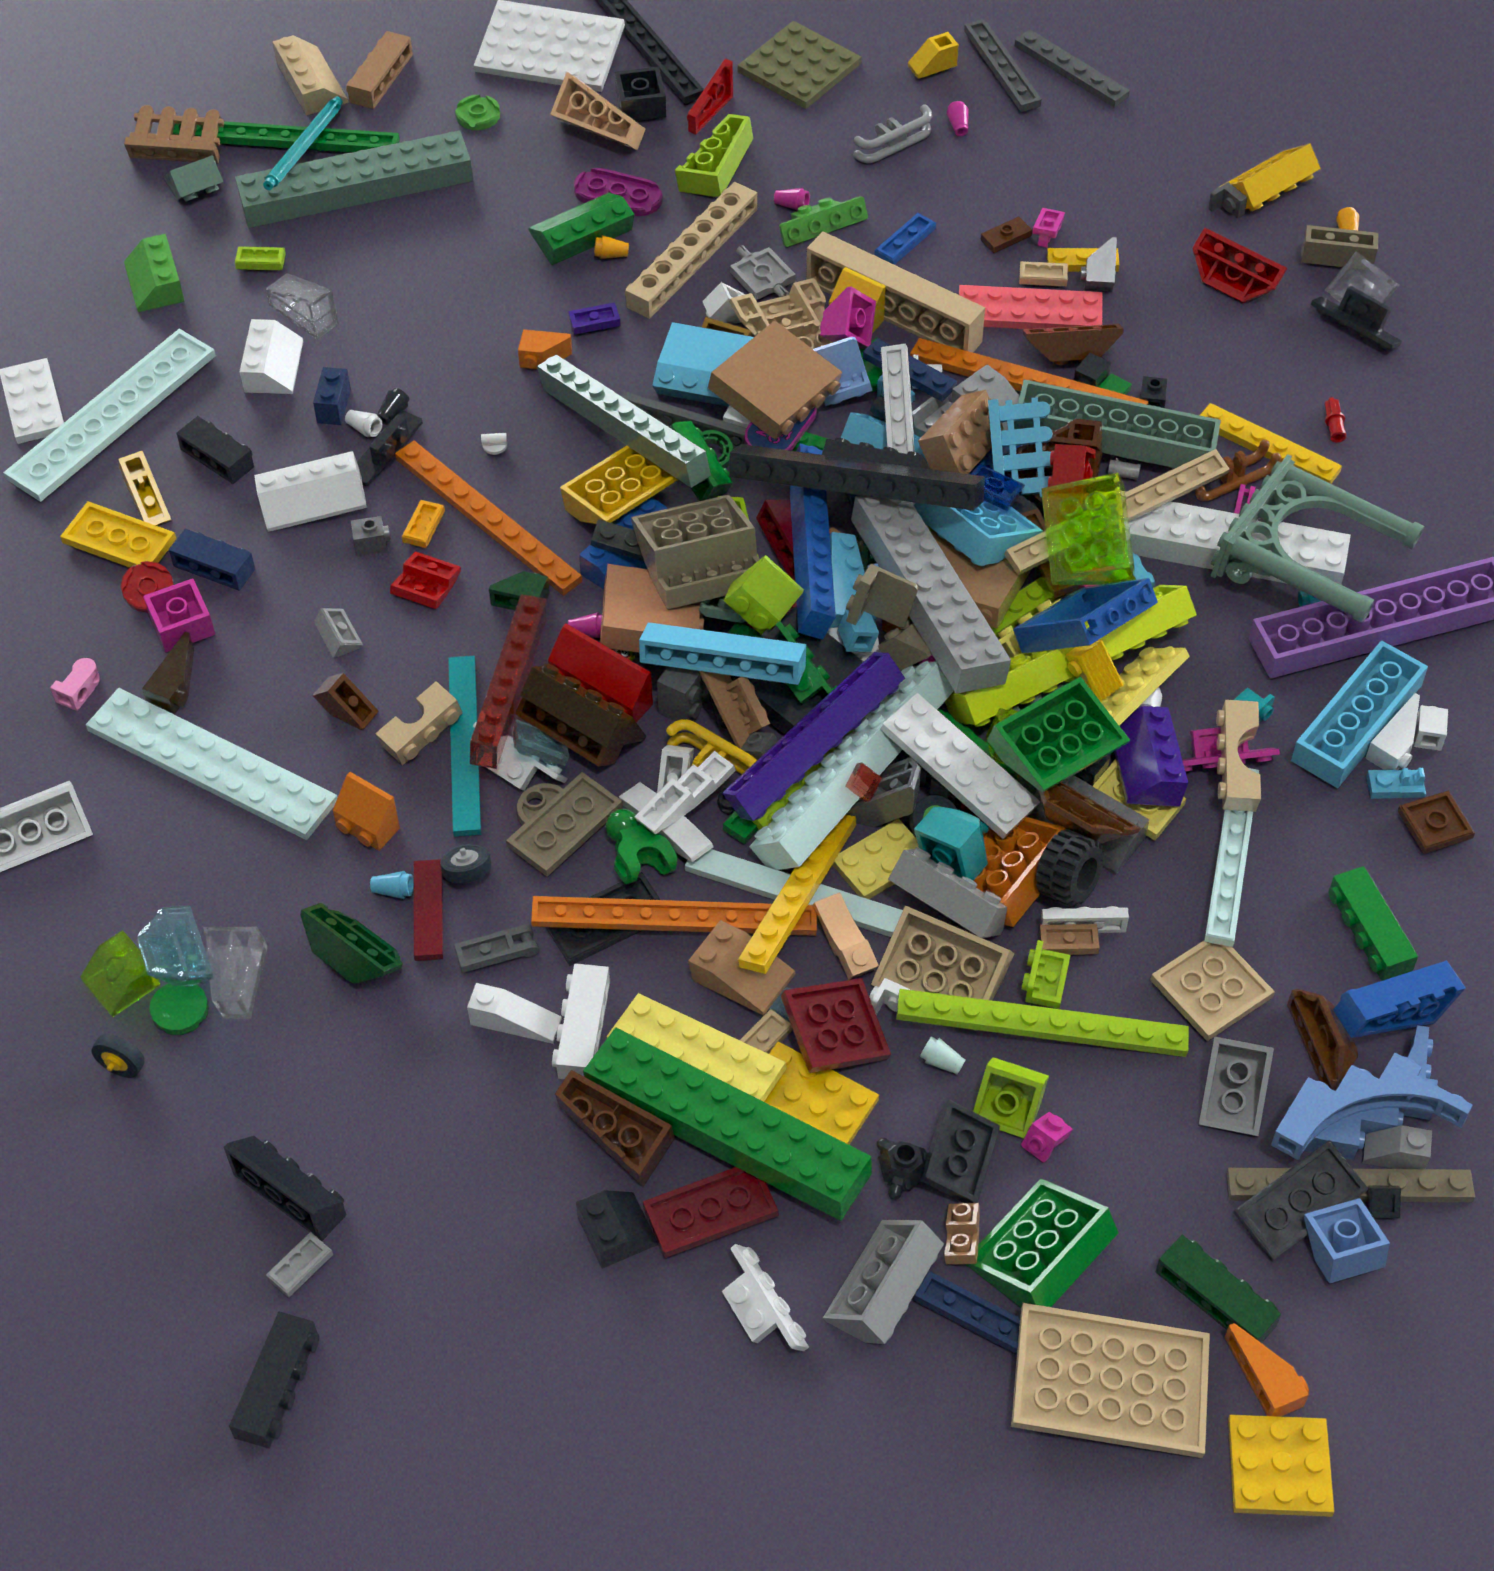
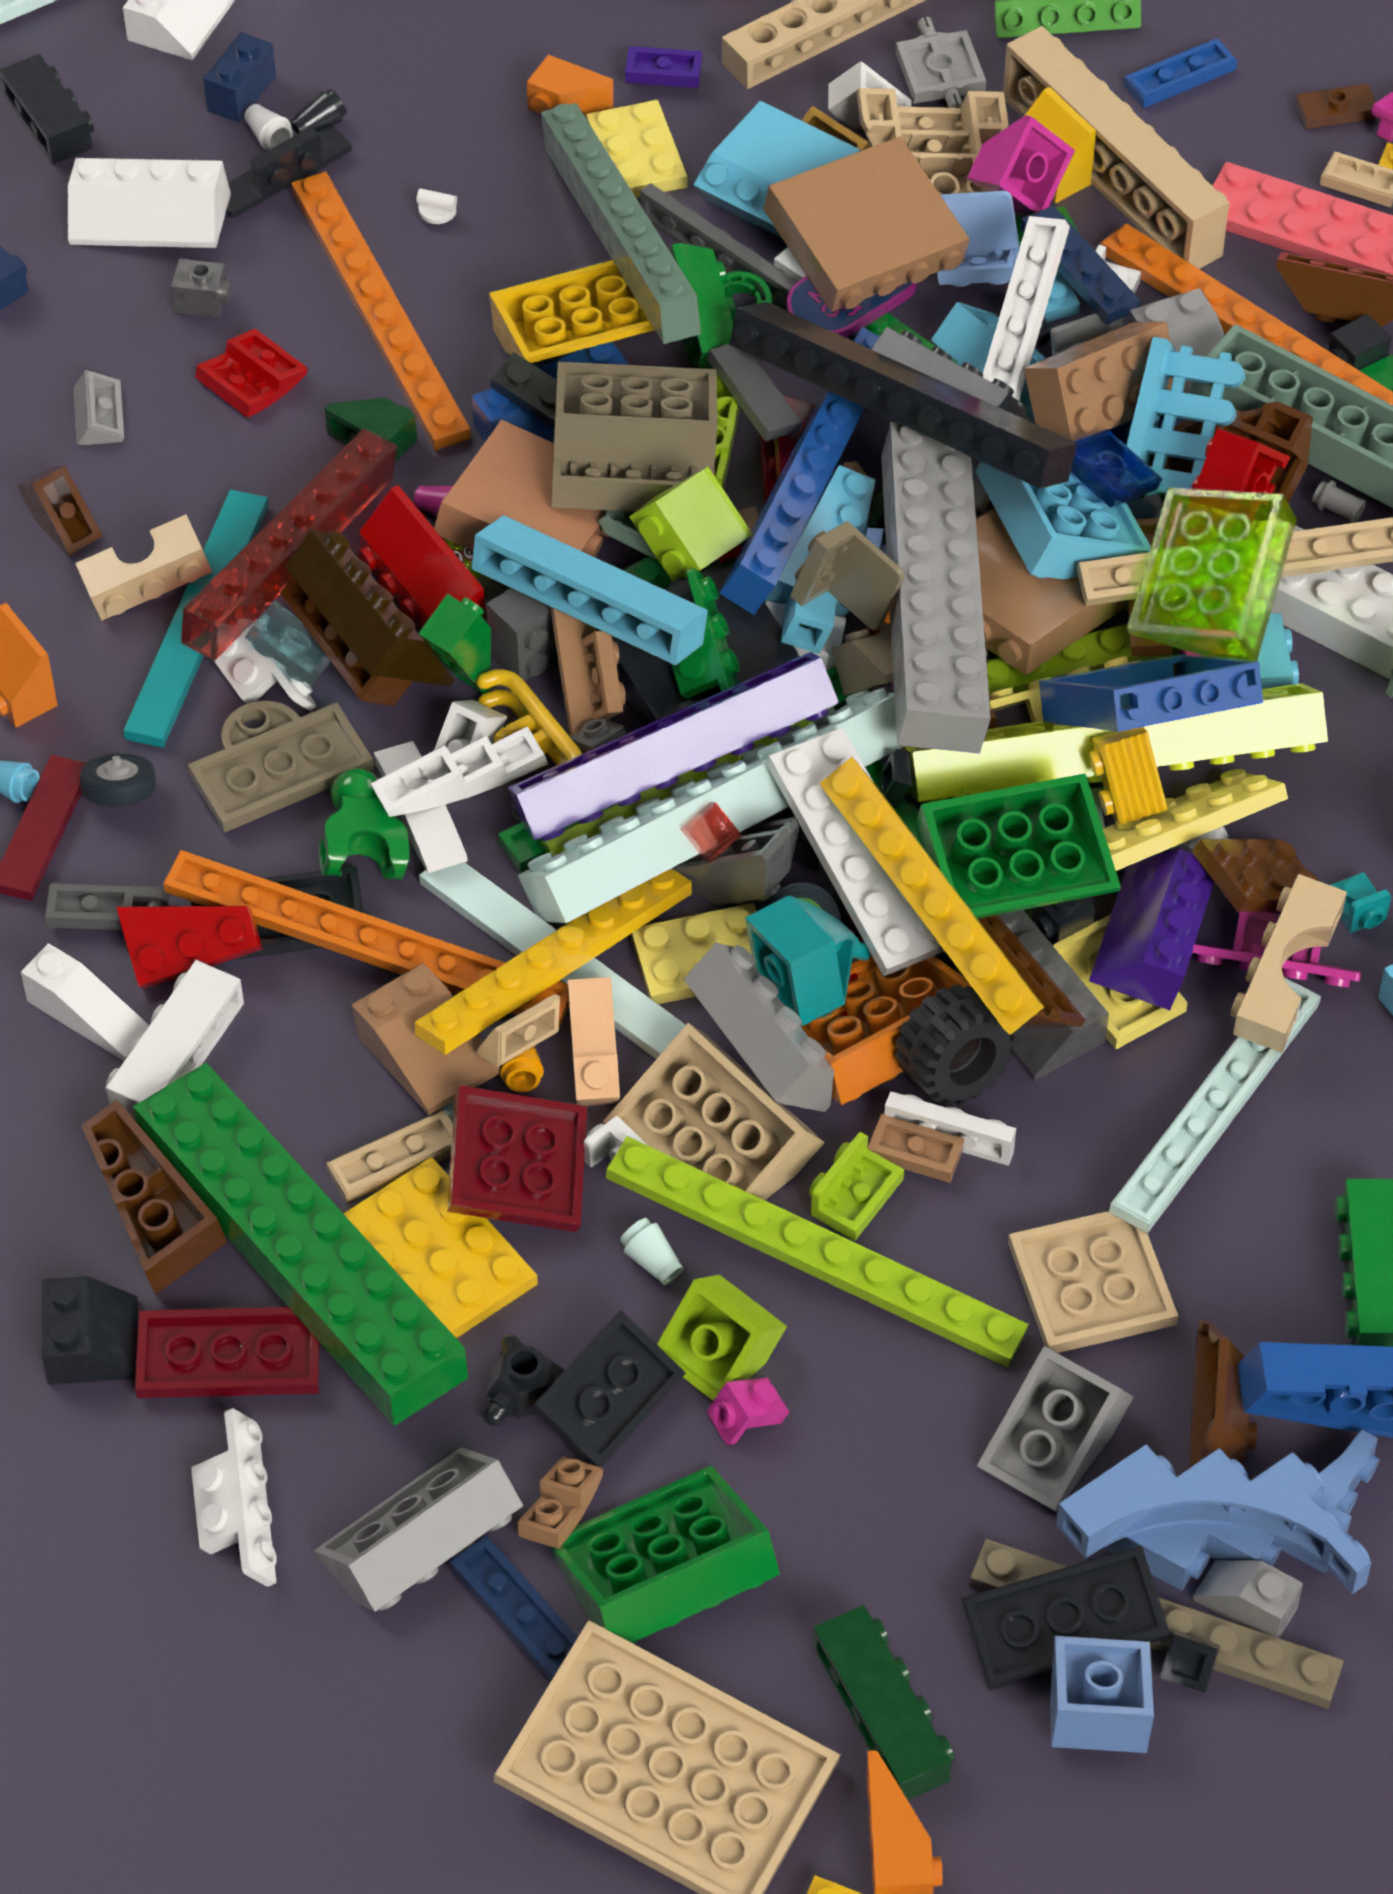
camera: 20 degrees right, 0 degrees up
(423, 524) = (283, 293): light orange plate -> none
(555, 953) = (170, 939): none -> red wing
(606, 368) = (640, 146): none -> light yellow plate
(652, 709) = (460, 639): none -> green slope
(702, 1046) = (319, 1132): light yellow plate -> none
(755, 502) = (754, 392): none -> dark grey tile
(802, 945) = (521, 1032): none -> tan slope
(805, 964) = (523, 1071): none -> light orange cone
(957, 712) = (896, 777): none -> black tile
(1024, 779) = (932, 896): none -> yellow plate
(1191, 706) = (1251, 870): none -> reddish brown plate

